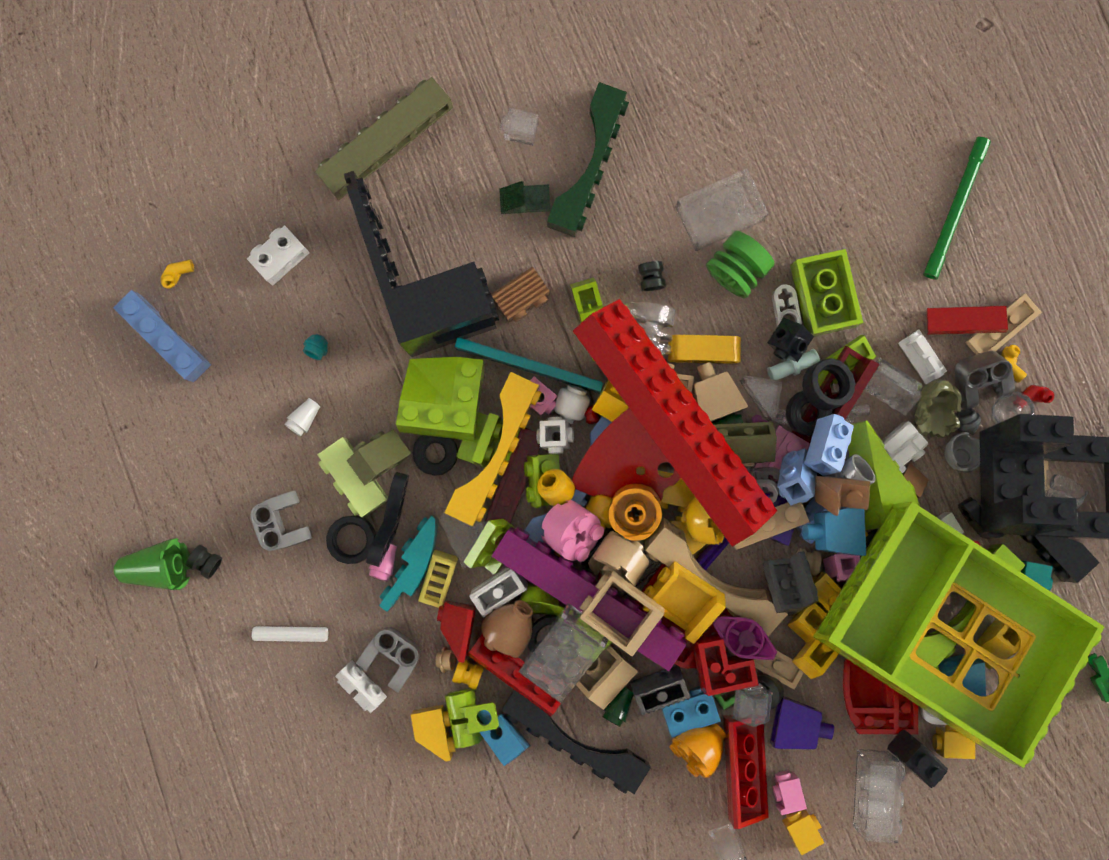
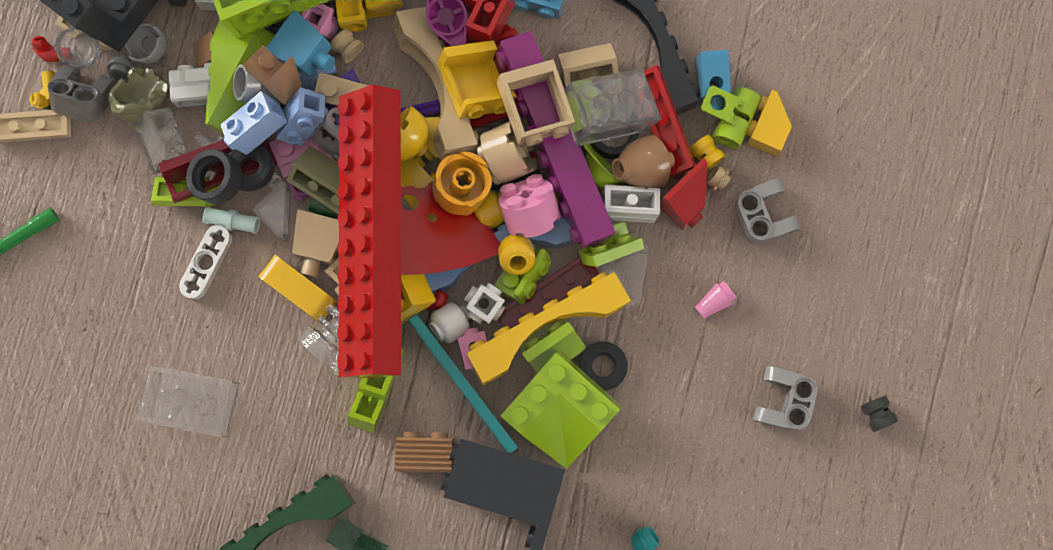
camera: 135 degrees left, 5 degrees down
(155, 566) = (927, 439): bright green cone -> none
(302, 418) = (701, 483): white cone -> none
(302, 634) = (843, 296): white axle -> none
(331, 539) = (749, 329): black tyre -> none
(353, 678) = (806, 195): white hinge -> none
(362, 498) = (693, 394): yellowish green brick -> none
(378, 456) = (656, 394): olive brick -> none
(391, 520) = (685, 330): black beam -> none
(418, 555) = (681, 283): teal slope -> none
(444, 558) = (664, 265): light yellow slope -> none
(618, 708) = (597, 35): dark green cone -> none
(652, 276) = (292, 393): pearl dark grey wheel -> none
(660, 690) = (550, 25): black brick -> none
(740, 264) = (203, 340): bright green wheel -> none
(790, 340) = (217, 240): black brick -> none
(790, 583) = (374, 34): dark grey bracket -> none
(826, 293) = (155, 260): lime brick -> none
(922, 357) = (116, 149): white hinge -> none
(967, 320) = (54, 152): red tile -> none

